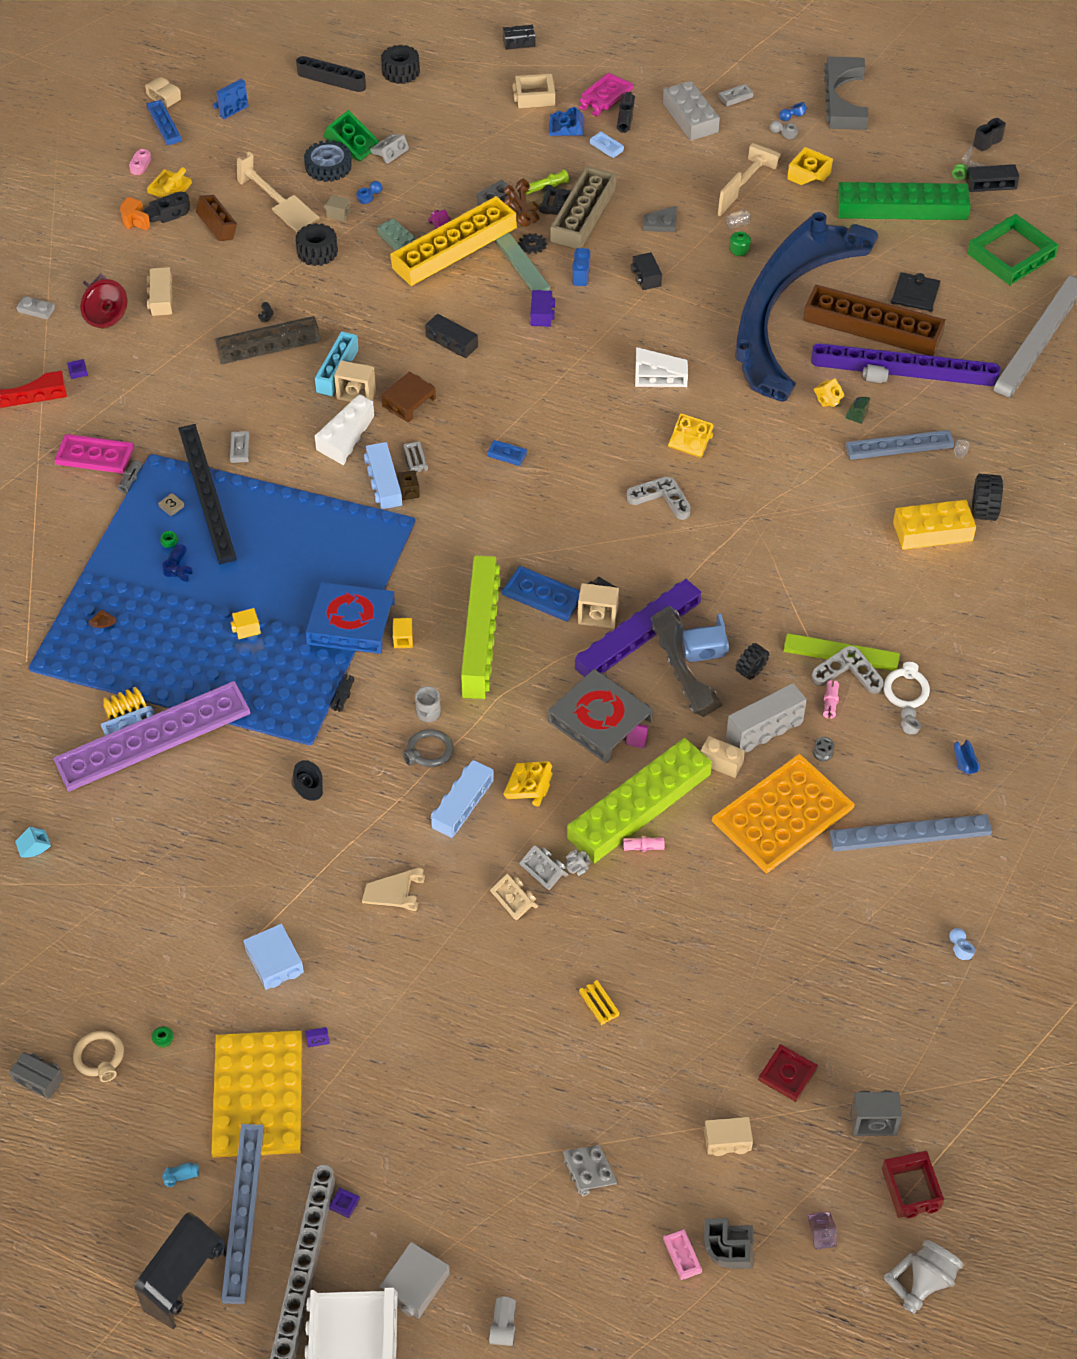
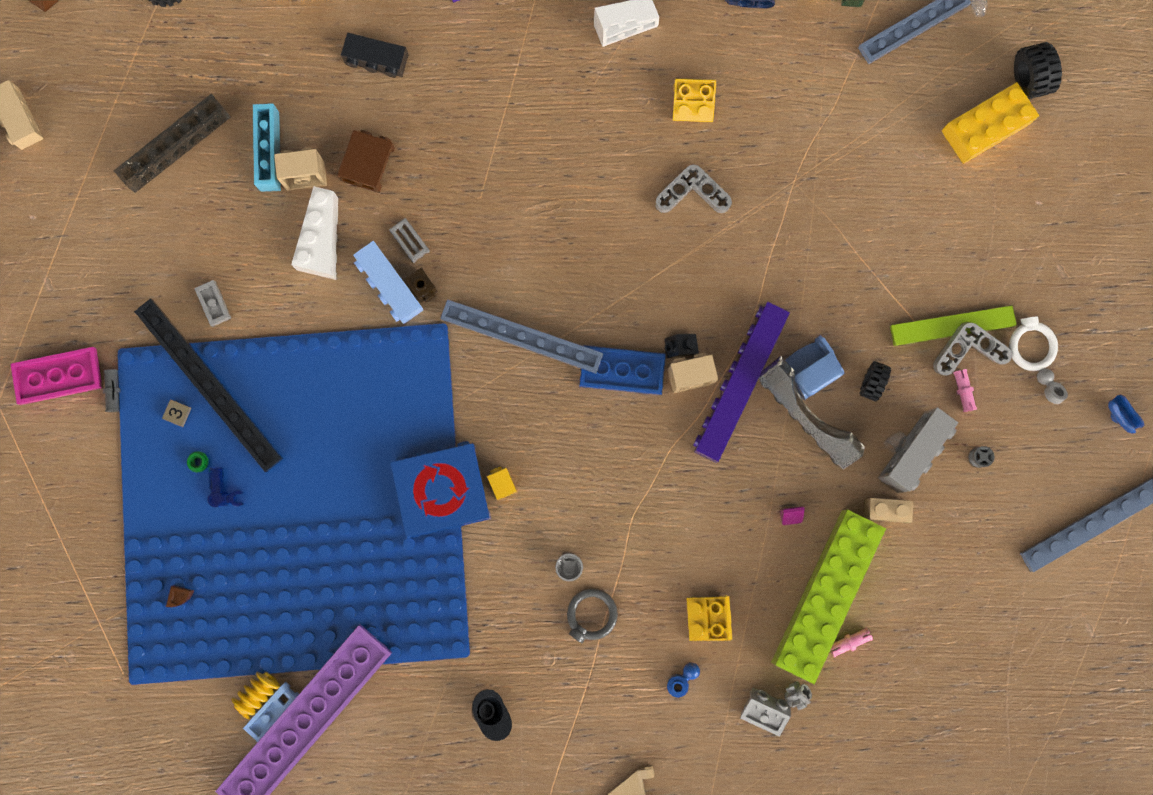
camera: 25 degrees left, 30 degrees up
(245, 623) = (334, 544): yellow brick -> none
(267, 312) = (153, 98): black arm -> none
(342, 692) = (473, 582): black pin -> none
(462, 798) = (652, 667): light blue brick -> none
(471, 540) = (522, 336): none -> sand blue plate
(480, 627) = (581, 449): lime brick -> none
(493, 816) = (690, 672): none -> blue plate
(507, 452) = (506, 197): blue plate -> none
(513, 896) = (752, 758): tan bracket -> none
(598, 714) = (748, 507): dark grey panel -> none
(783, 813) = (970, 551): light orange plate -> none

